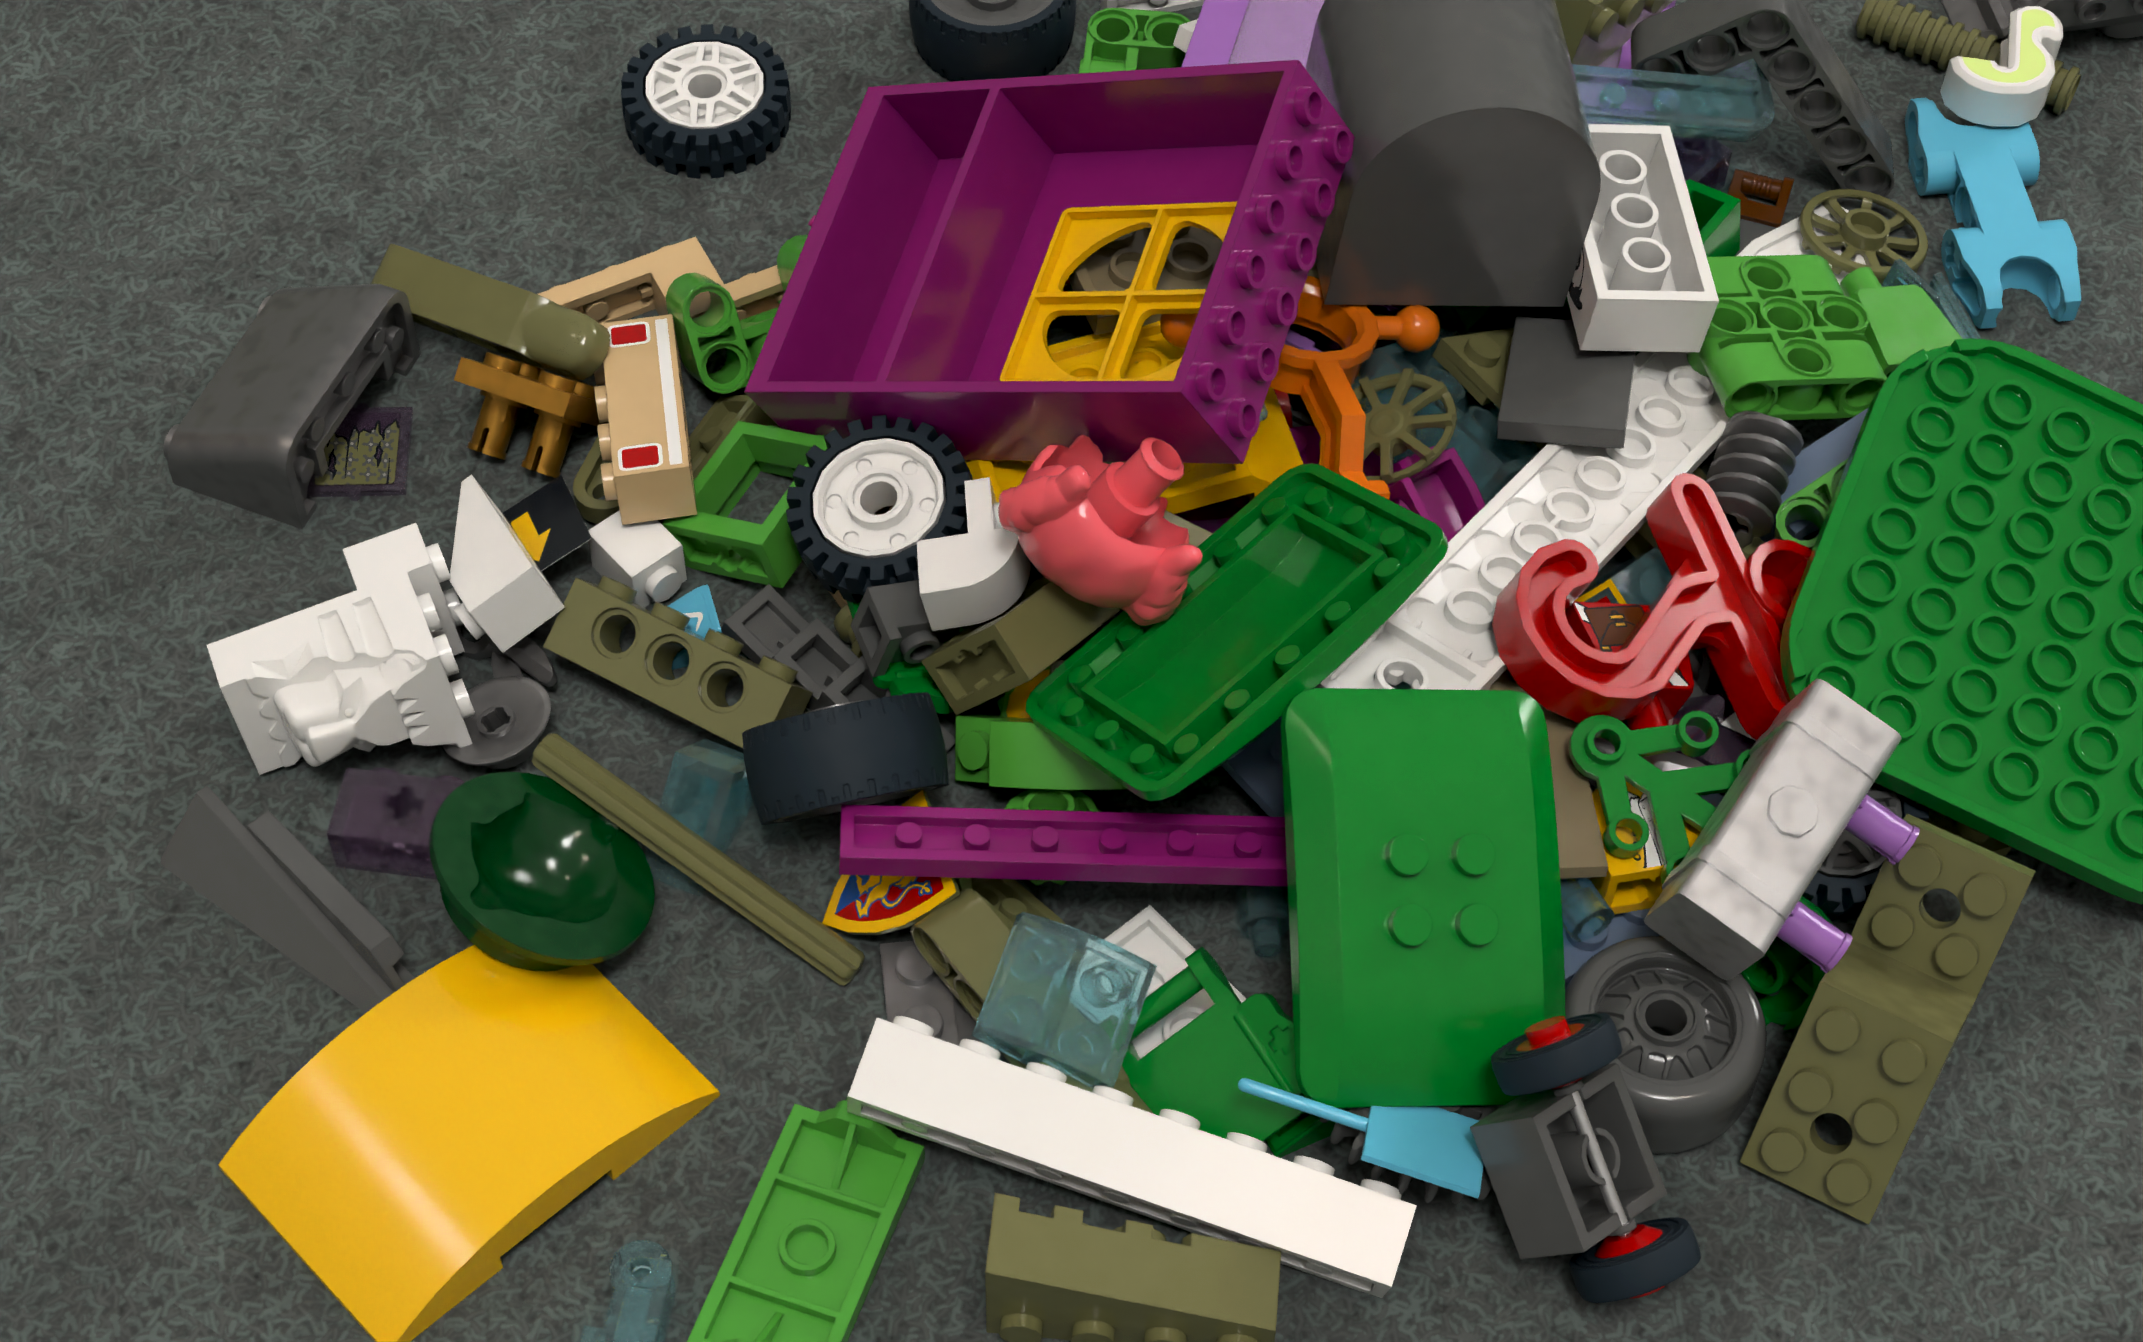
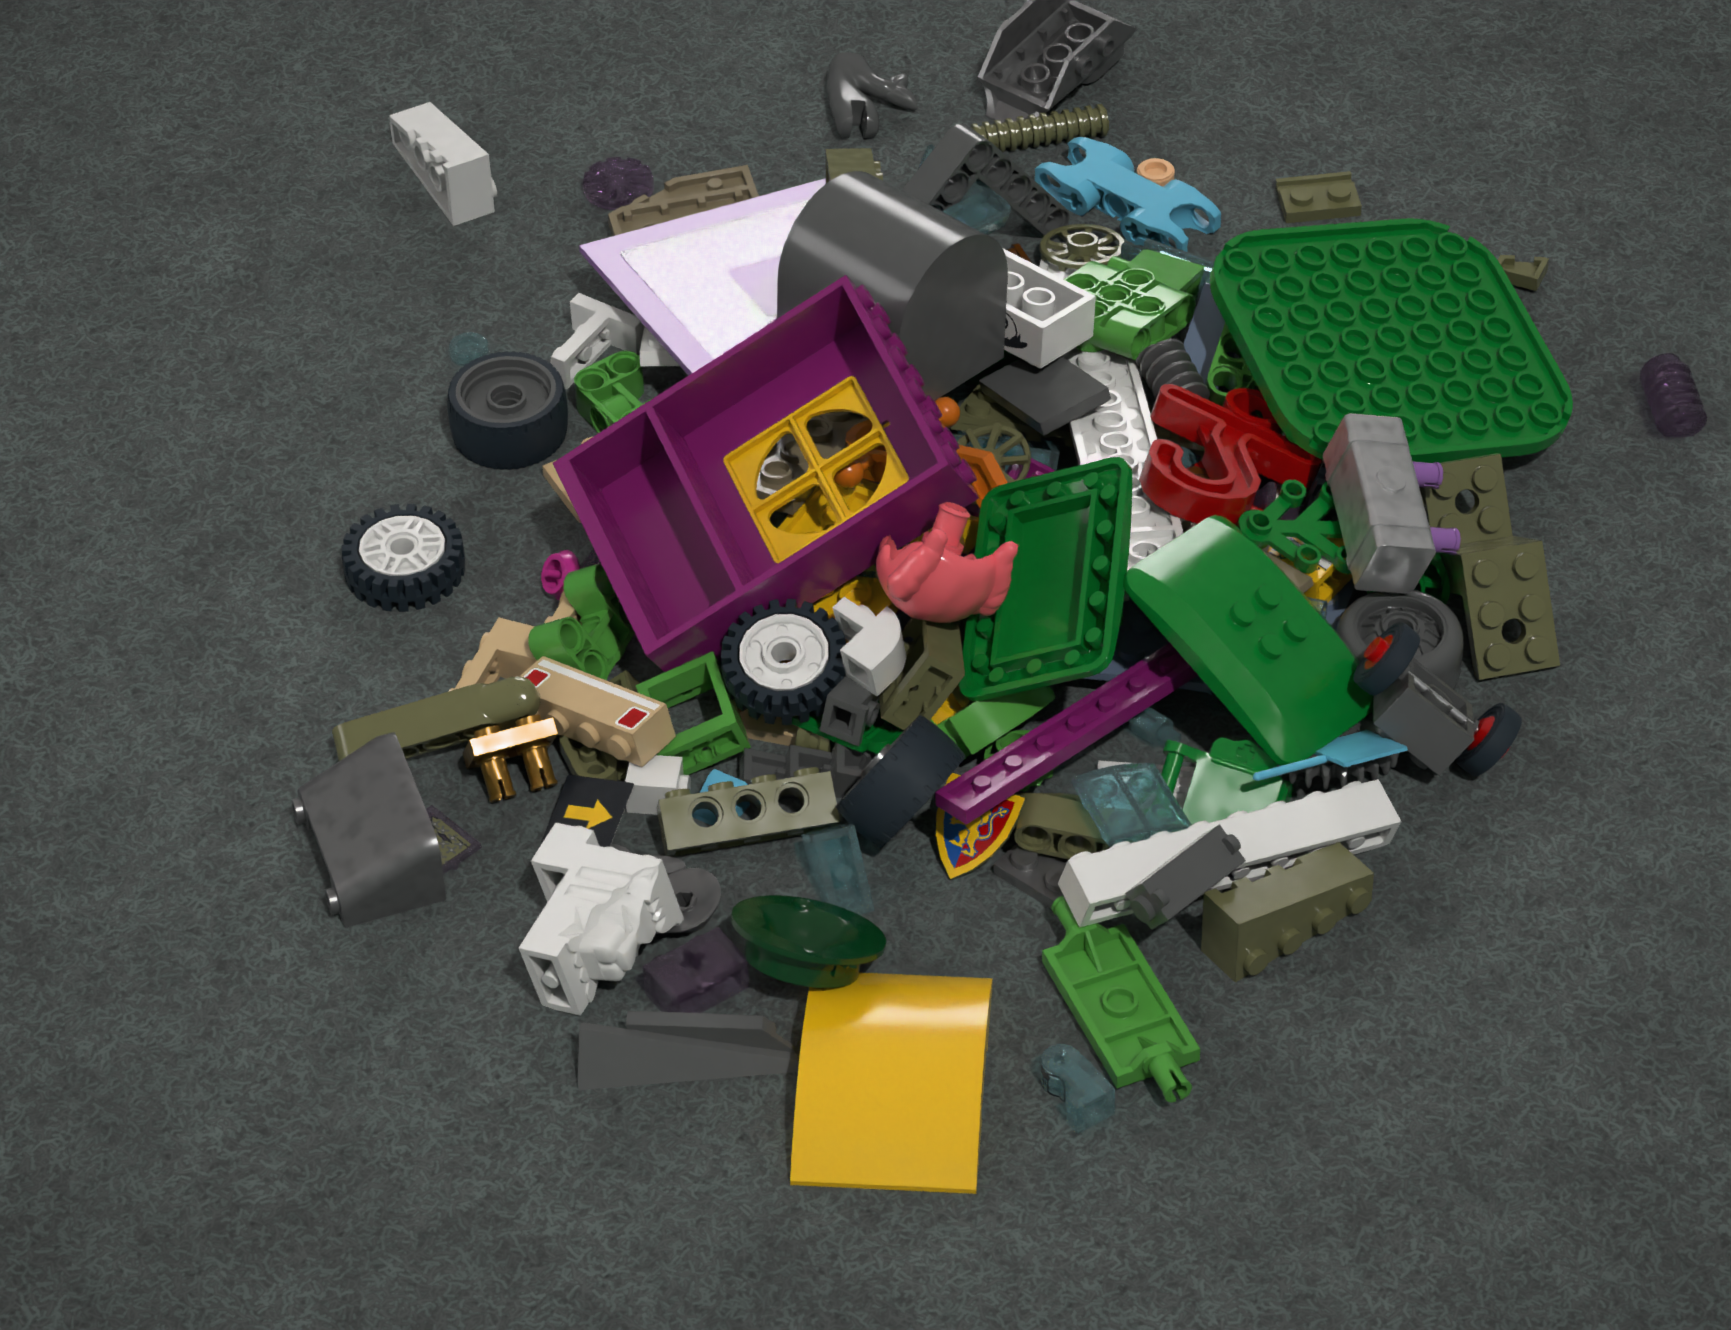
camera: 40 degrees left, 10 degrees down
(495, 573) = (619, 823): white slope -> none
(698, 859) = (866, 884): olive axle -> none
(987, 1154) = (1185, 877): none -> dark grey brick
(2020, 83) = (1083, 119): white animal -> none
(2066, 199) = (1157, 171): none -> light nougat tile

